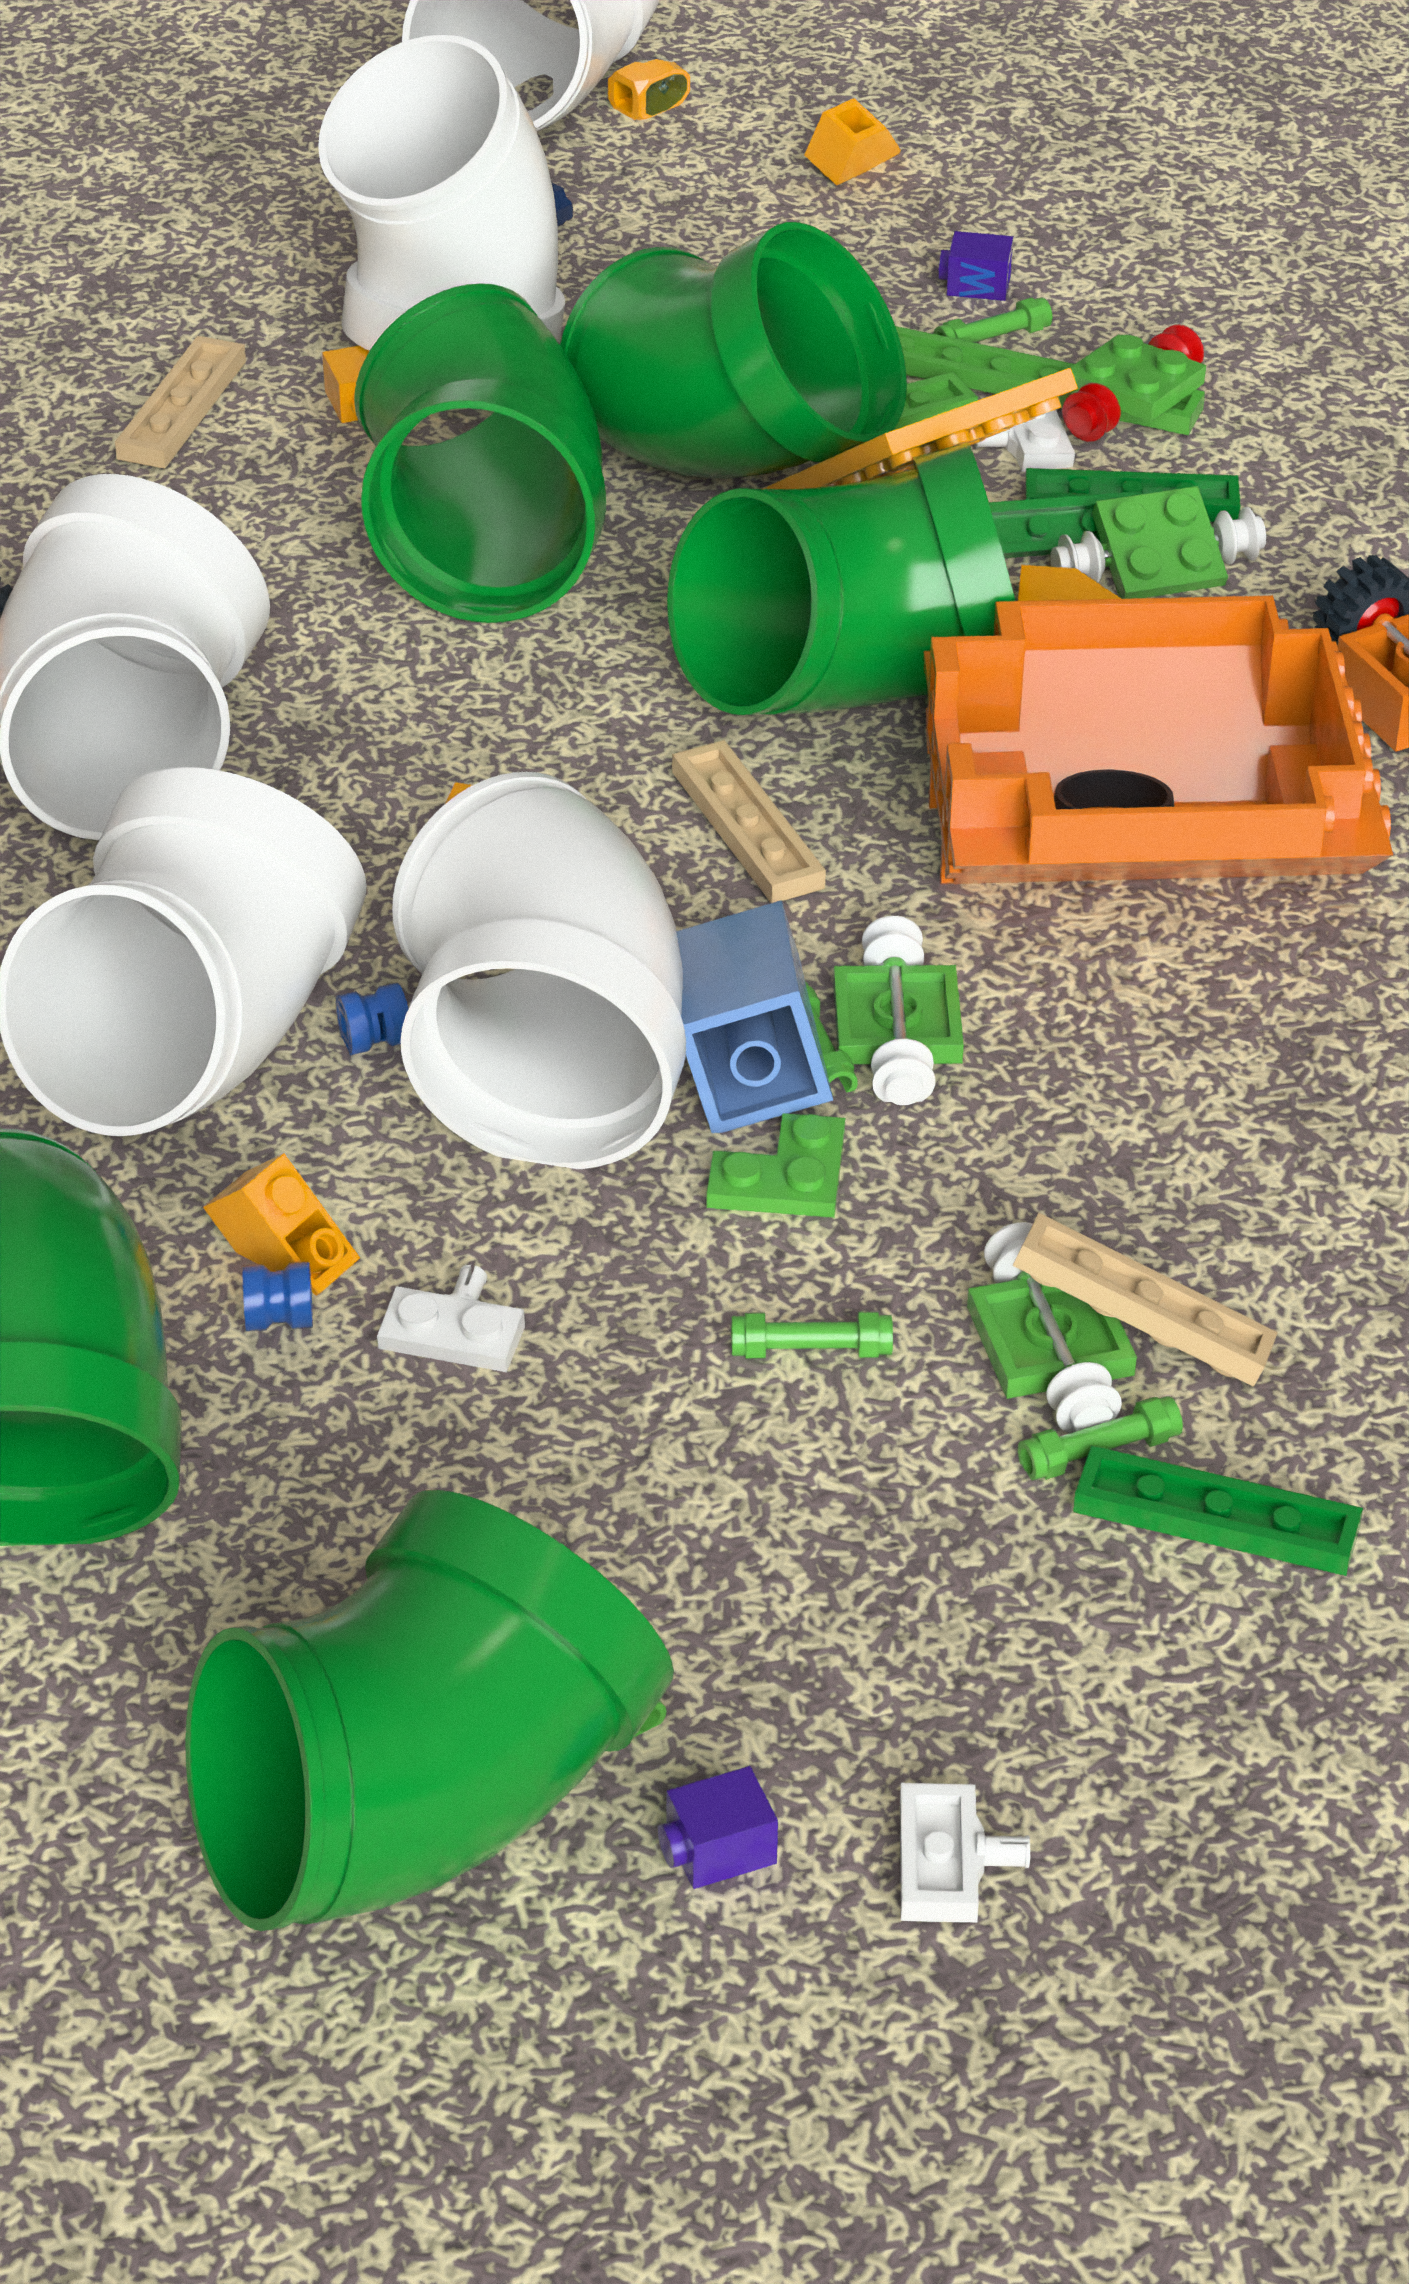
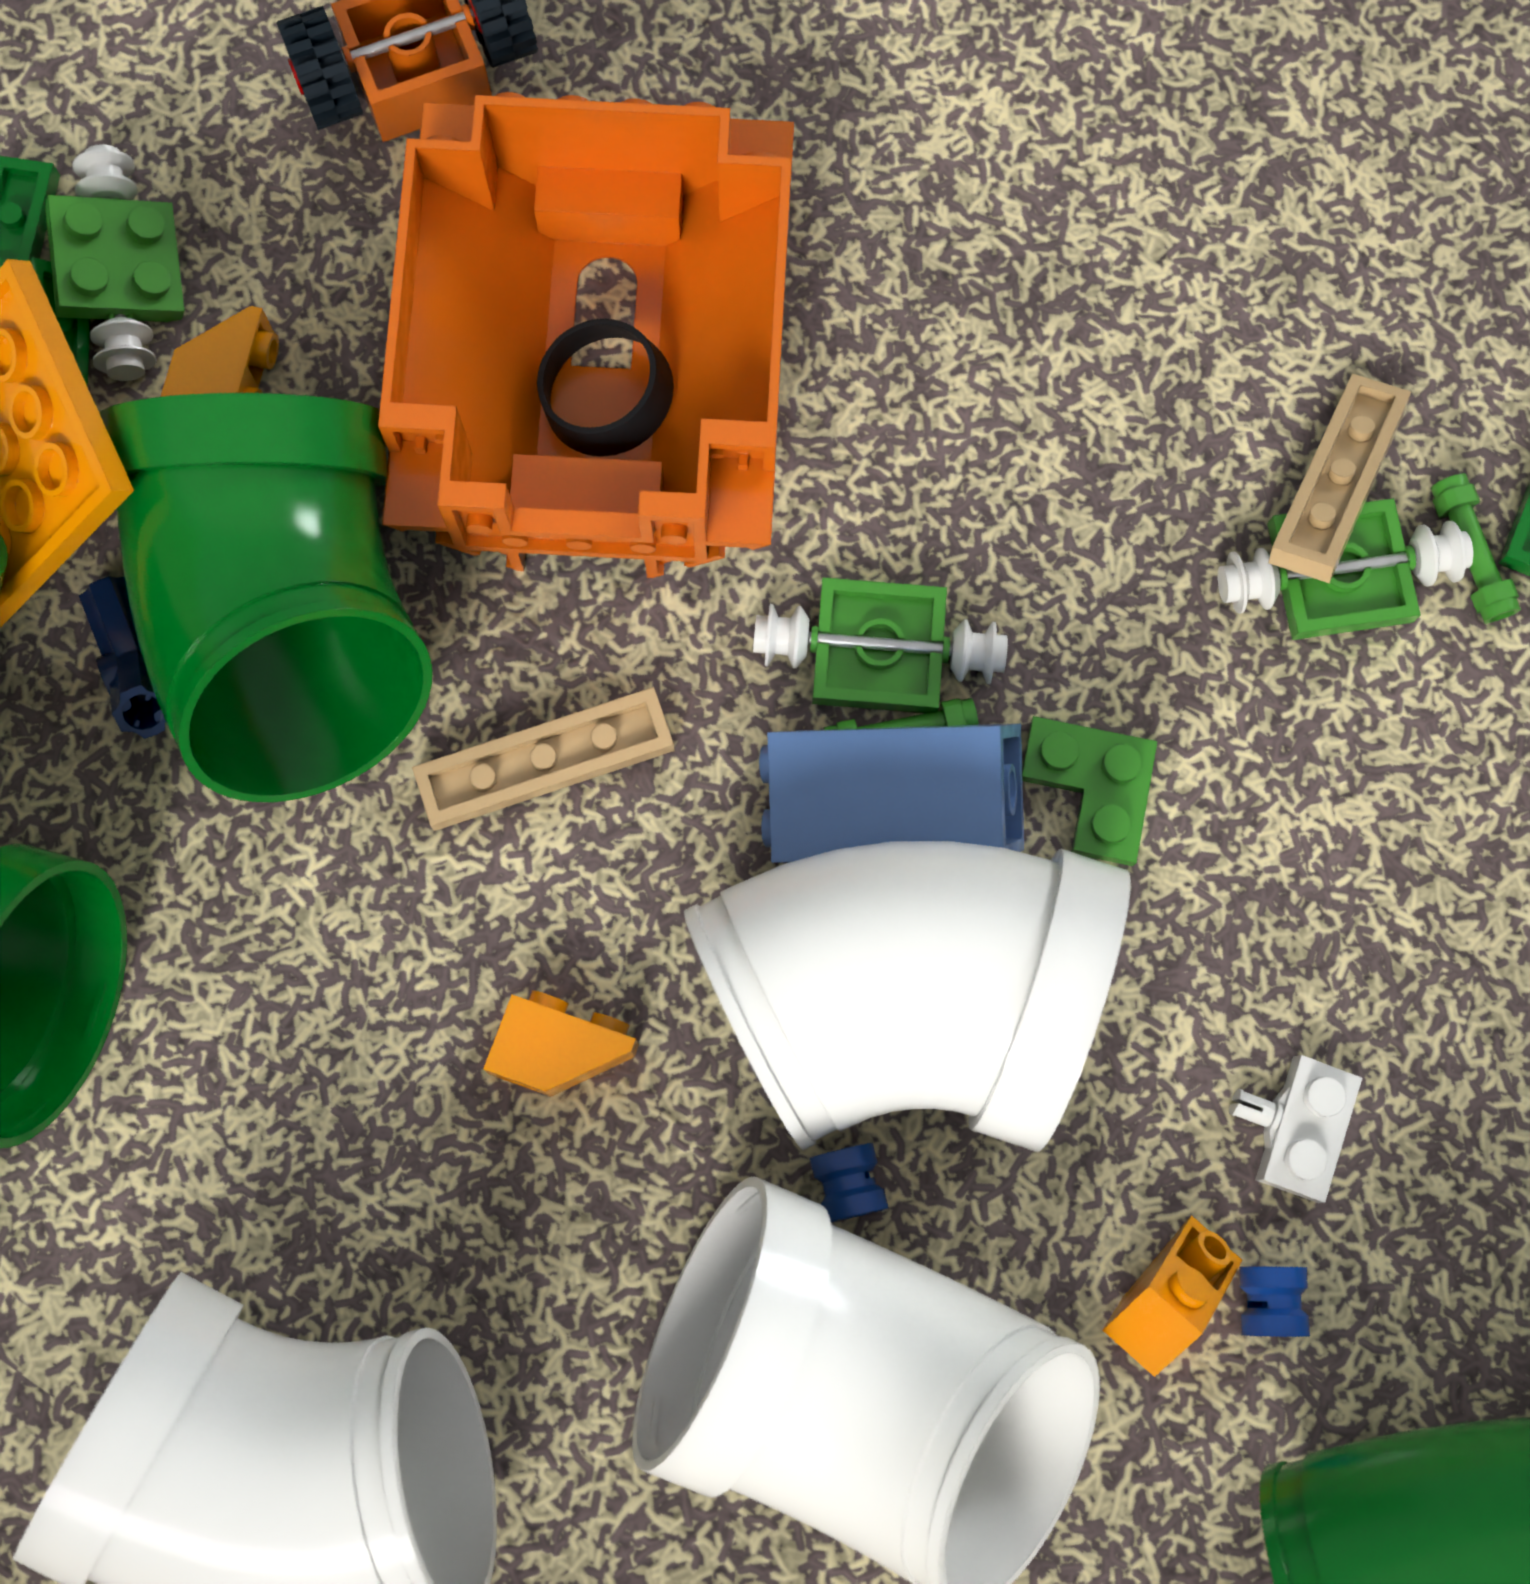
camera: 85 degrees left, 35 degrees up
(753, 1335) = (1334, 732): bar -> none

